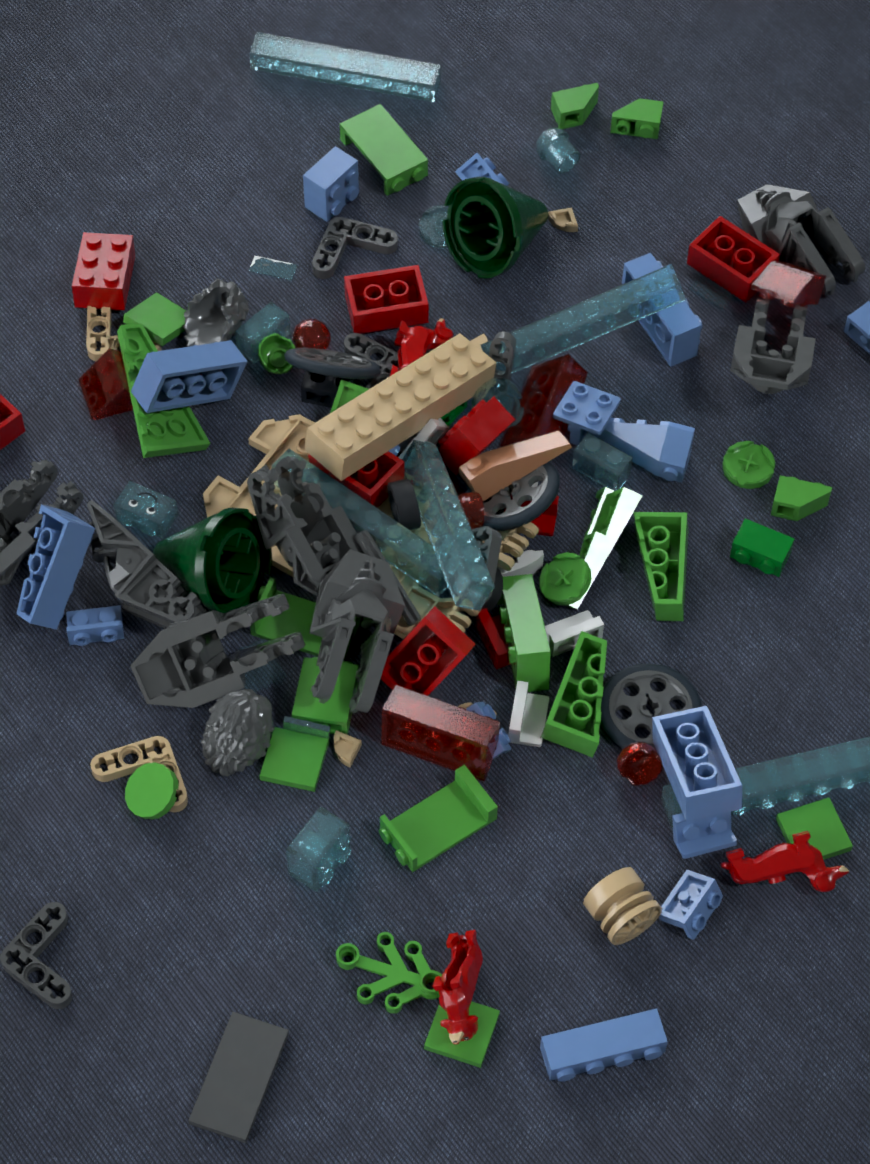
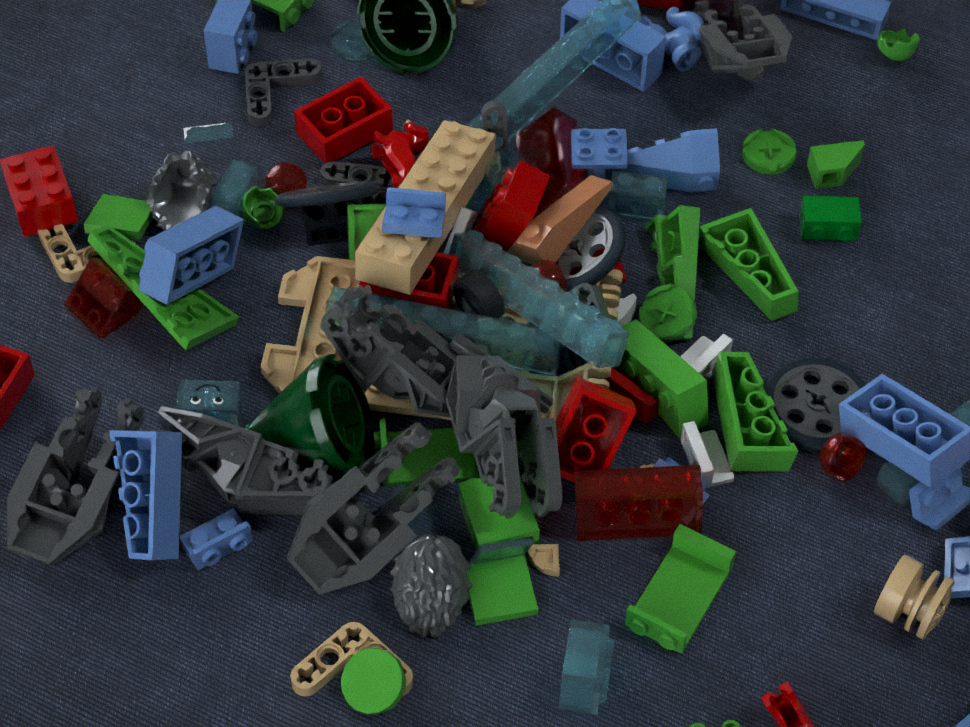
camera: 25 degrees left, 5 degrees down
(372, 412) = (414, 212): none -> medium blue bracket
(721, 331) = (684, 40): none -> medium blue animal

